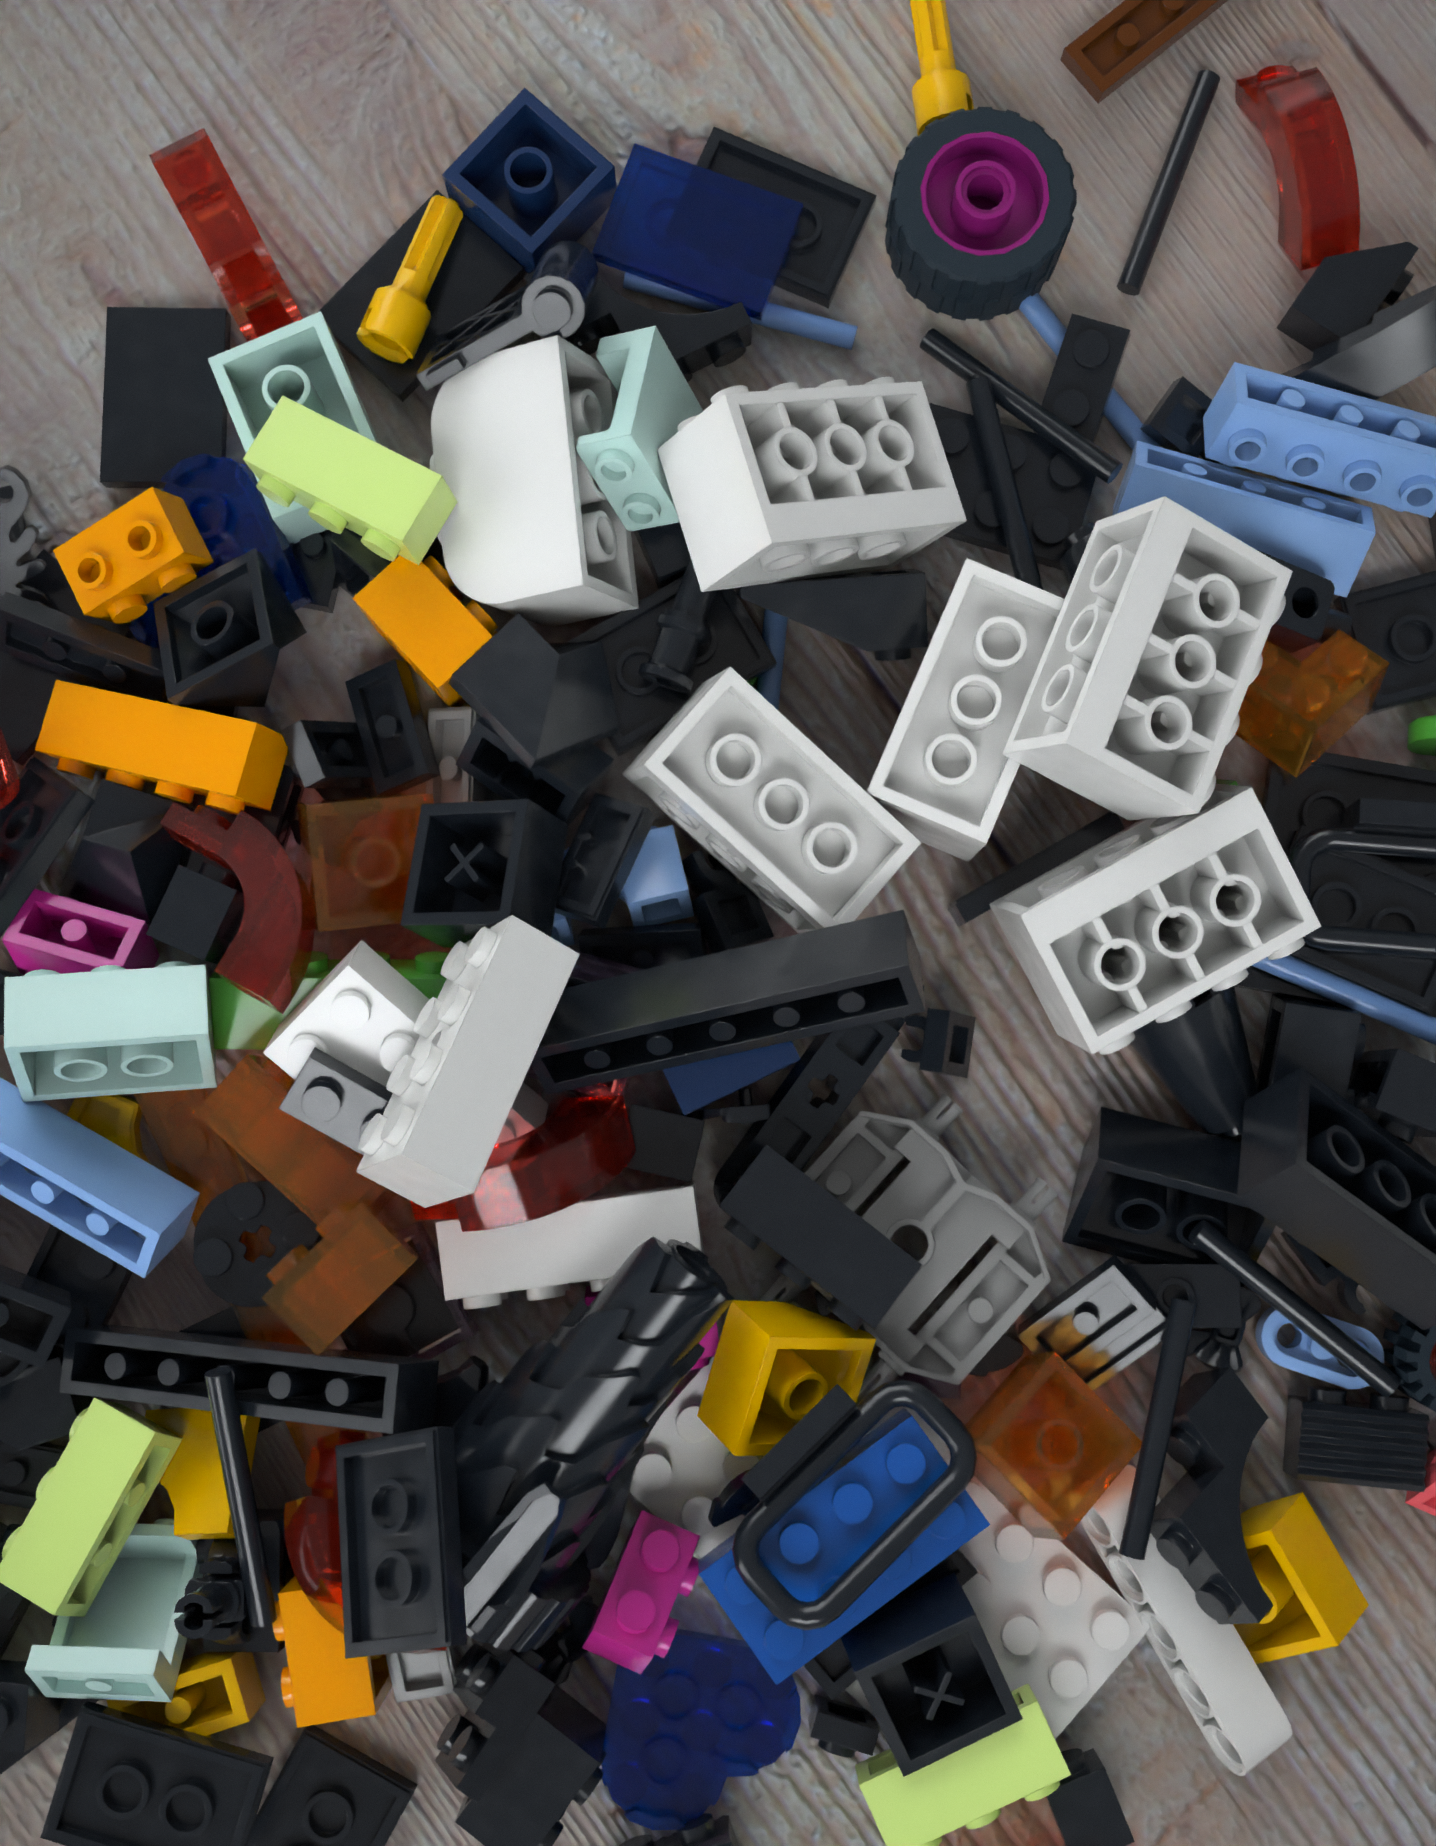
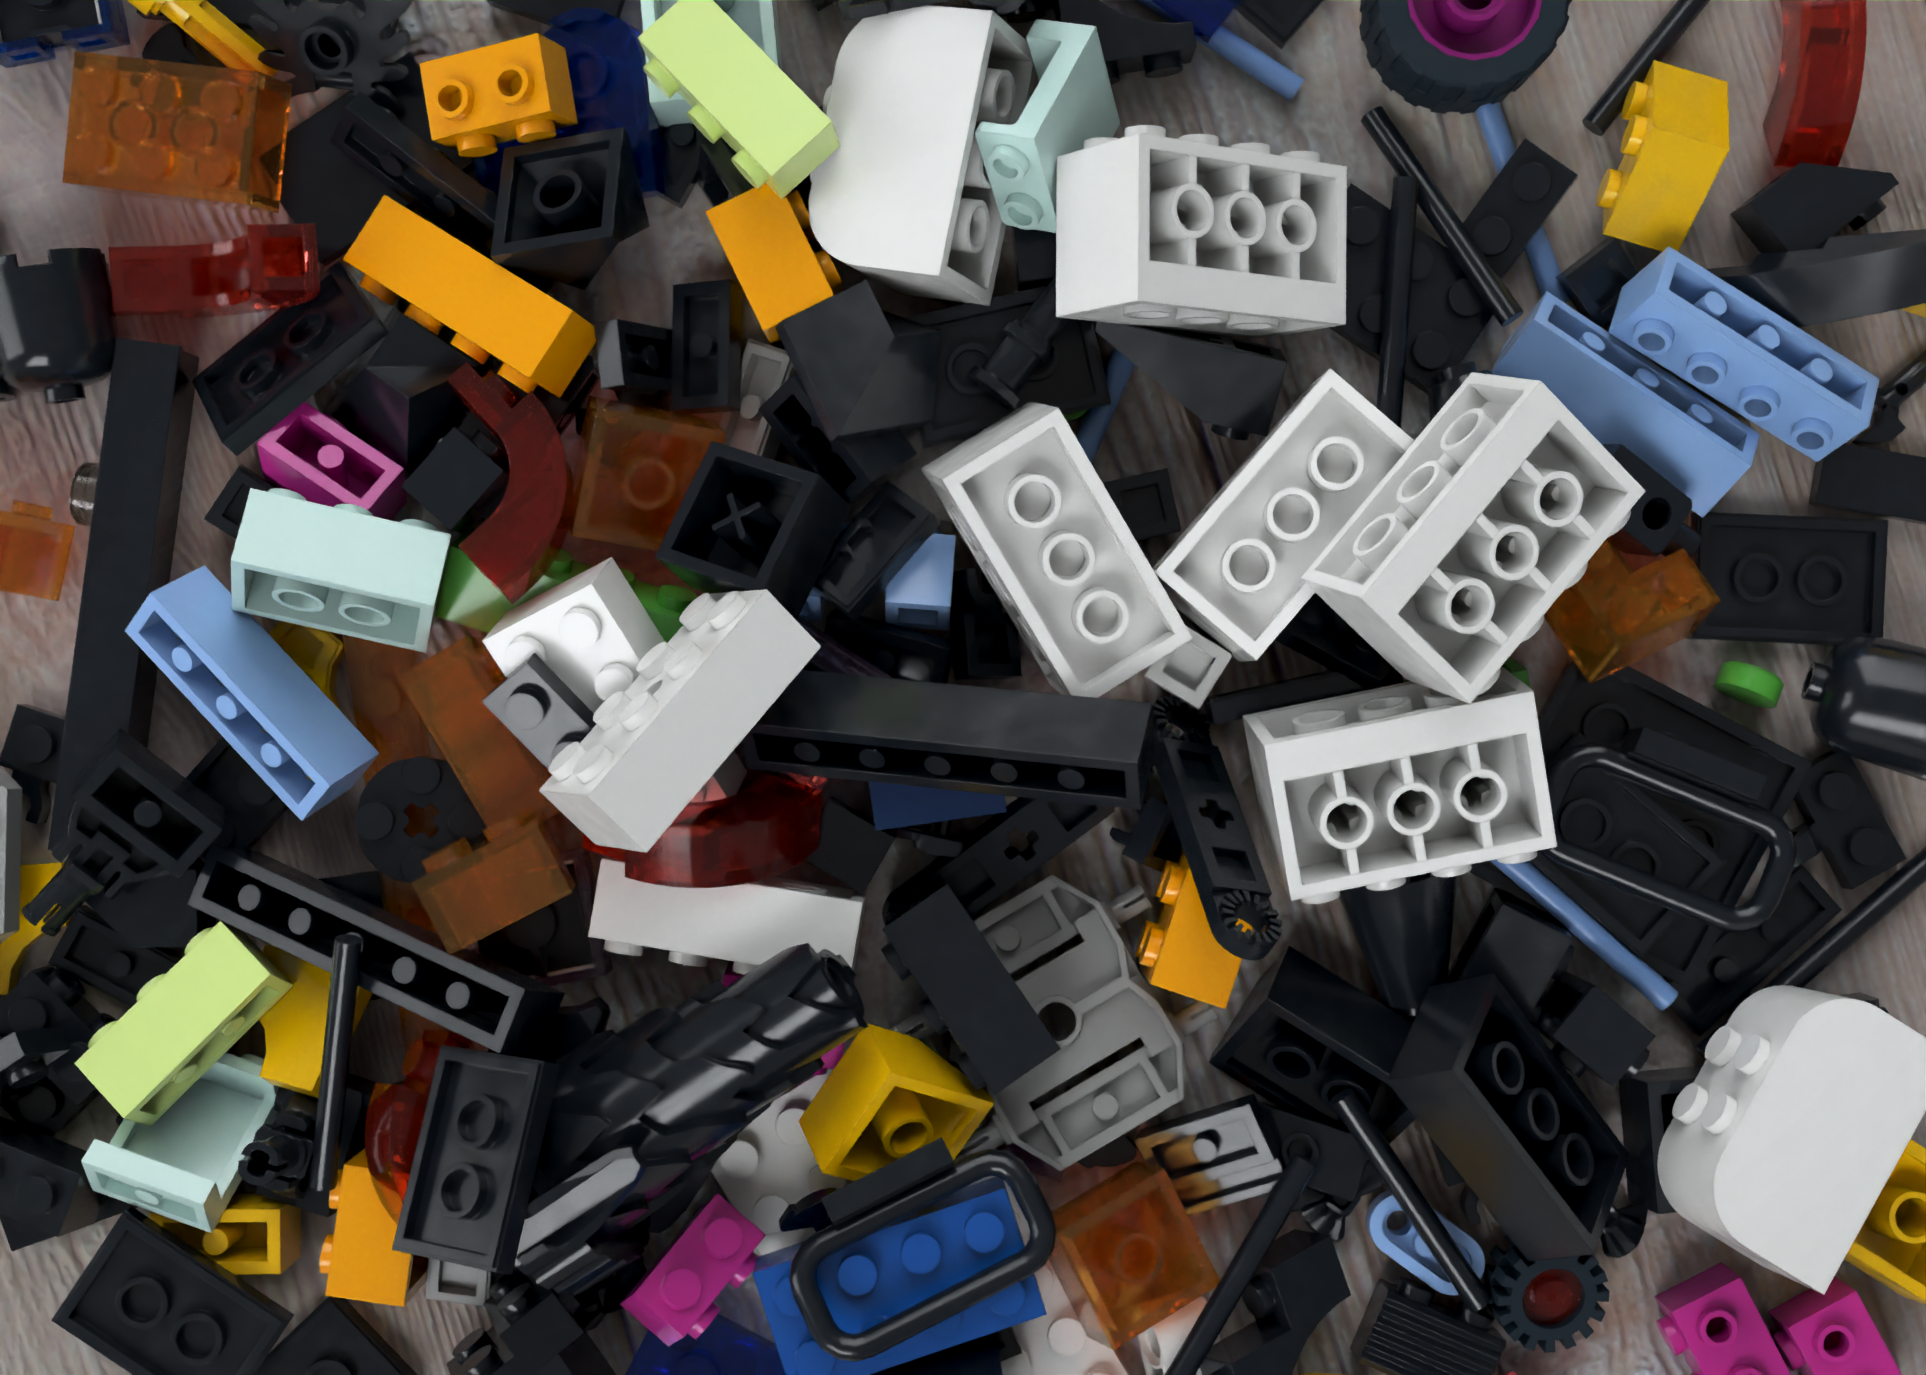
camera: 15 degrees right, 5 degrees up
(842, 741) = (1146, 504): none -> black plate
(925, 881) = (1190, 669): none -> white plate
(1000, 1020) = (1213, 832): none -> black piece
(1014, 1113) = (1180, 947): none -> light orange brick
(1051, 811) = (1334, 644): none -> black plate
(1209, 288) = (1670, 158): none -> yellow brick

